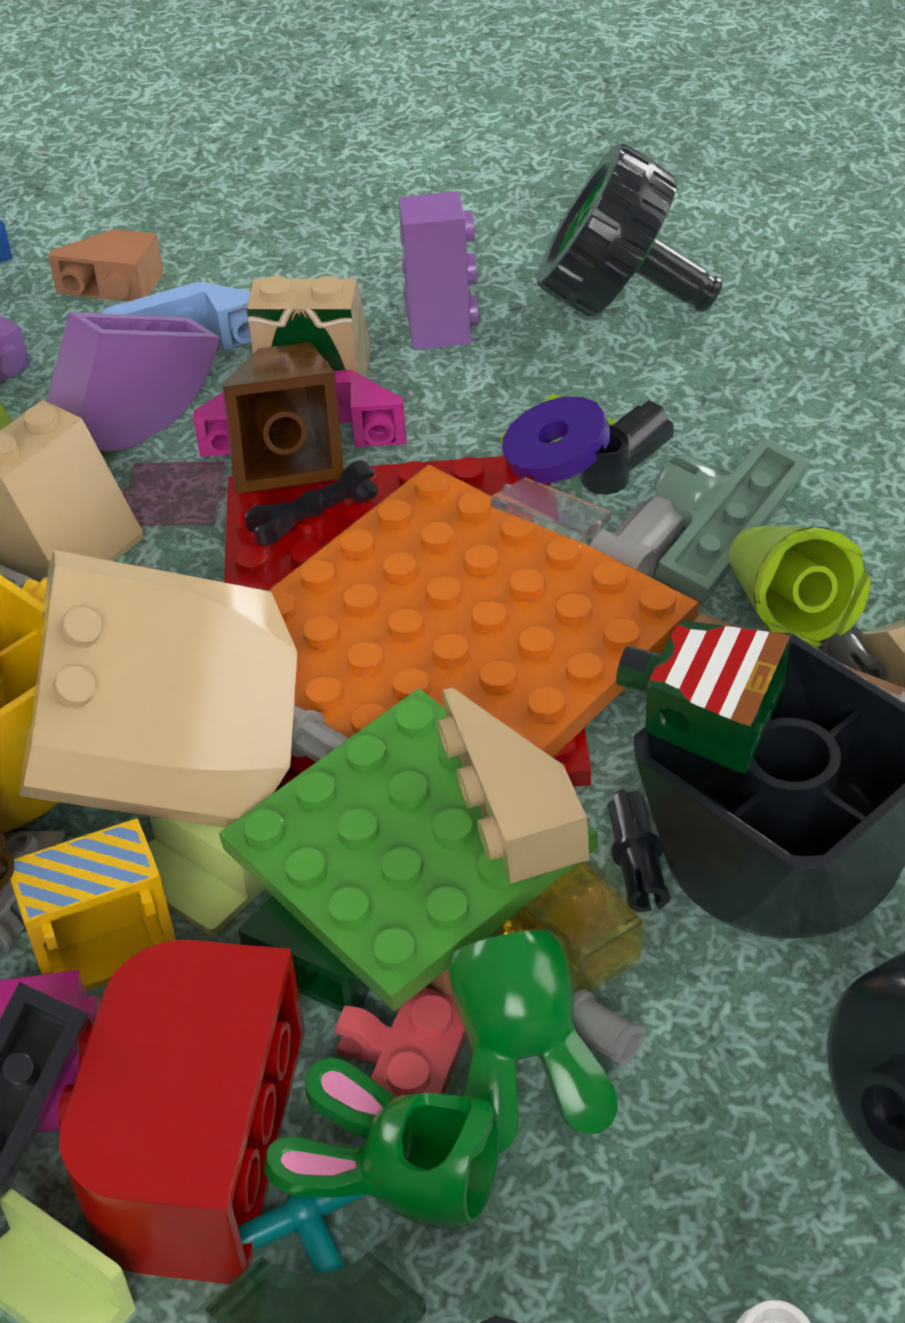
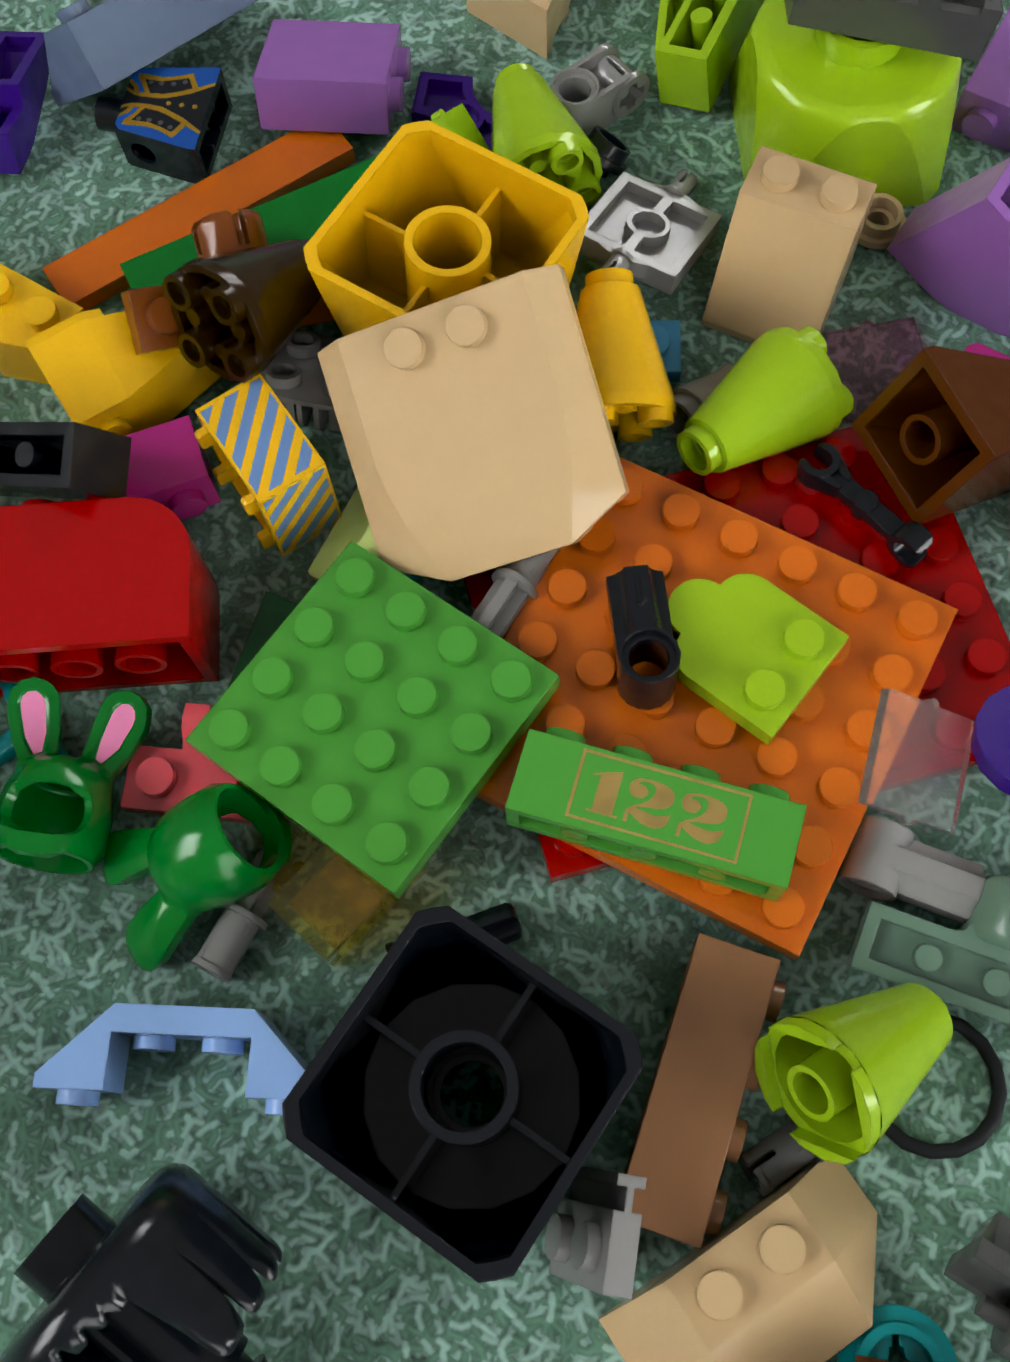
camera: 80 degrees right, 25 degrees up
(188, 526) = (767, 403): none -> lime cone
(420, 625) = (642, 634): none -> black piece
(431, 575) = (750, 649): none -> lime plate
(522, 792) = (383, 803): tan slope -> none
(567, 641) = (656, 813): none -> bright green brick
(698, 1144) = (99, 1055): none -> light blue slope
(710, 688) = (492, 977): torso -> none

